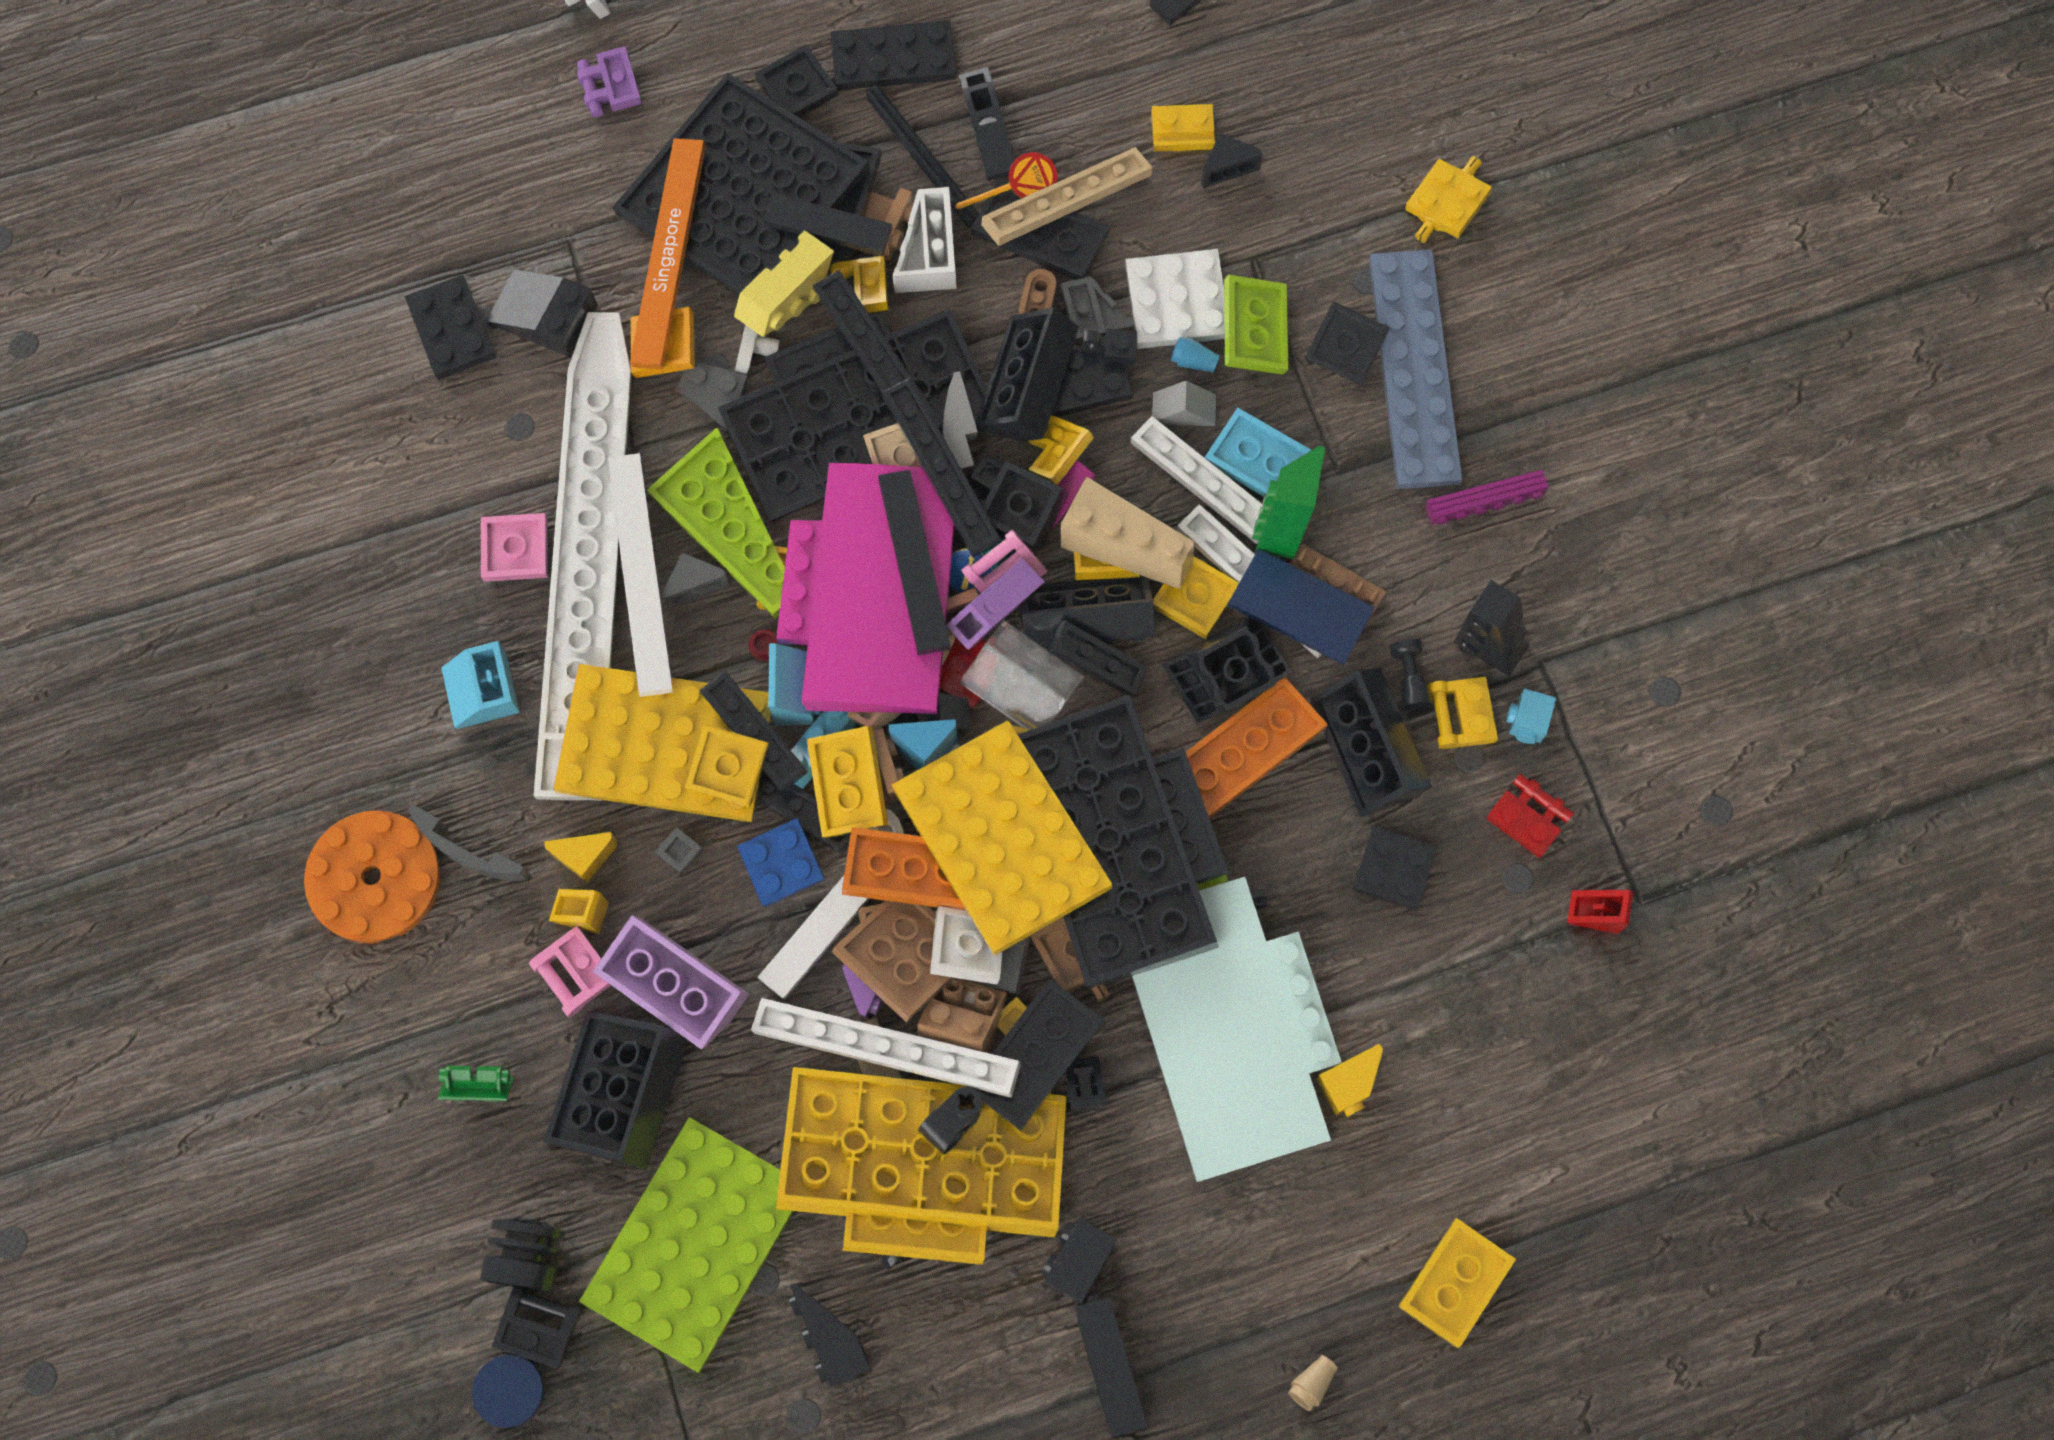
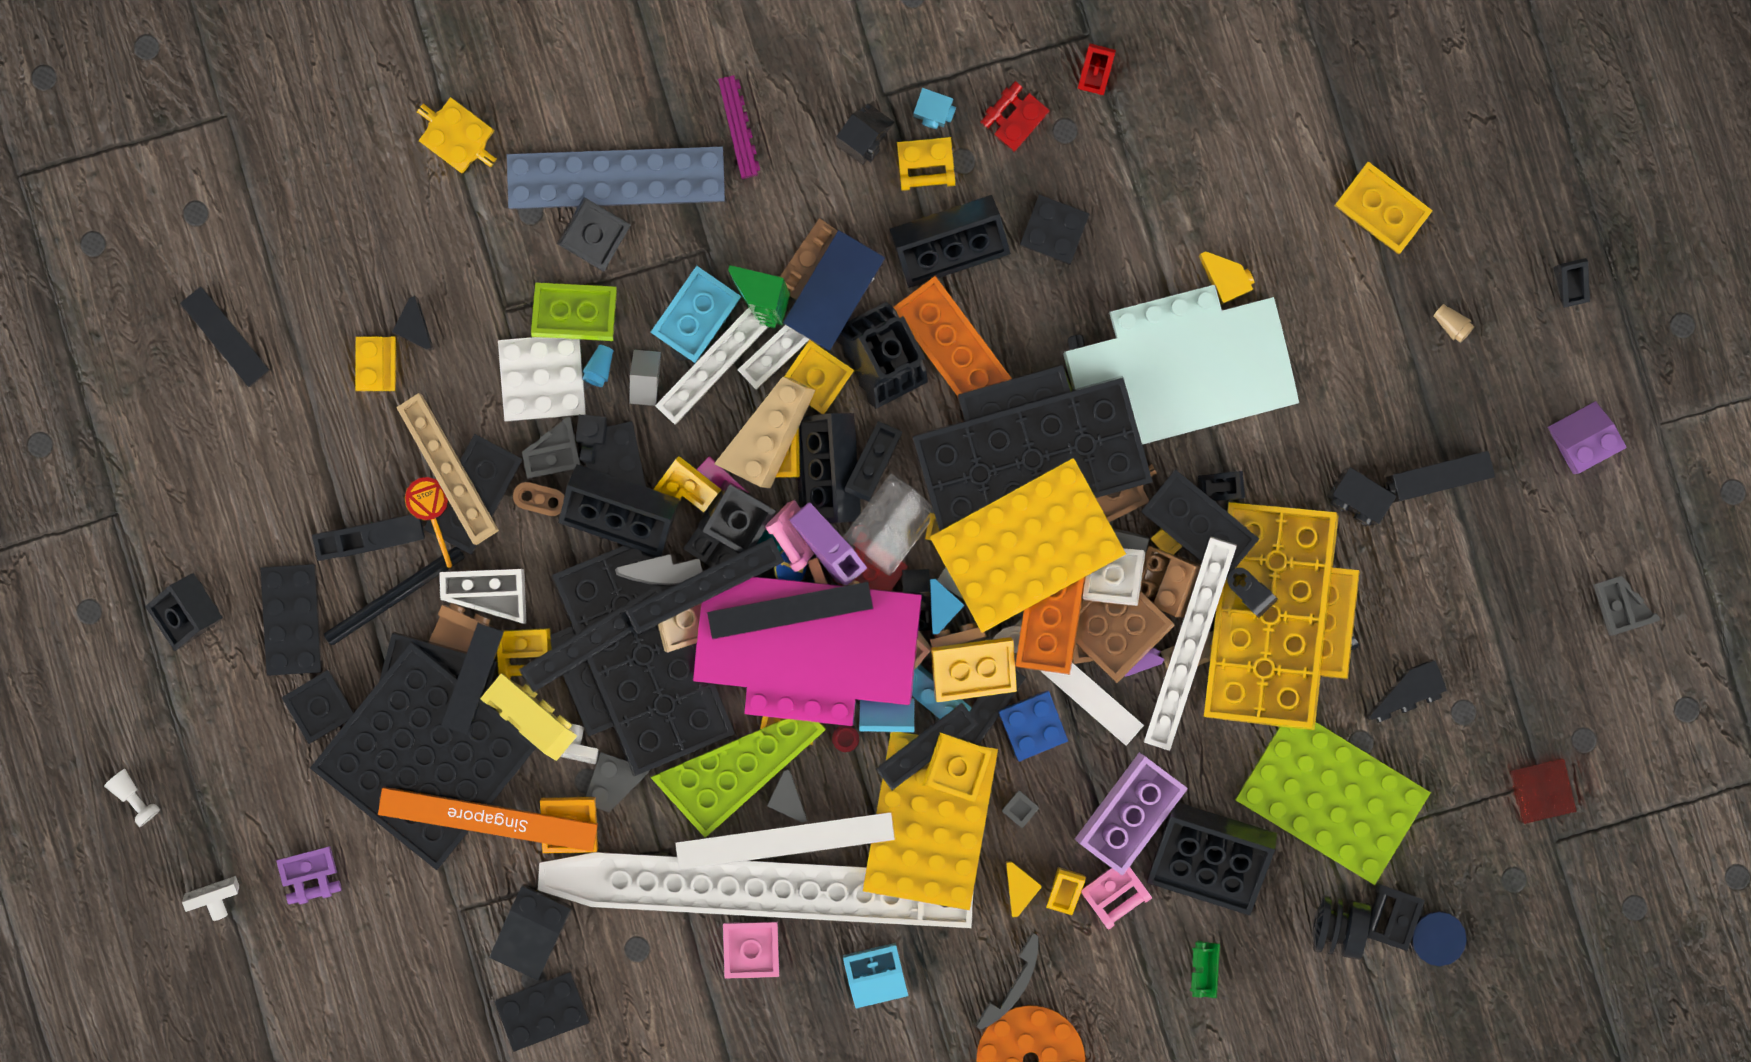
camera: 90 degrees left, 15 degrees up
(1413, 687) = (905, 202): black piece -> none

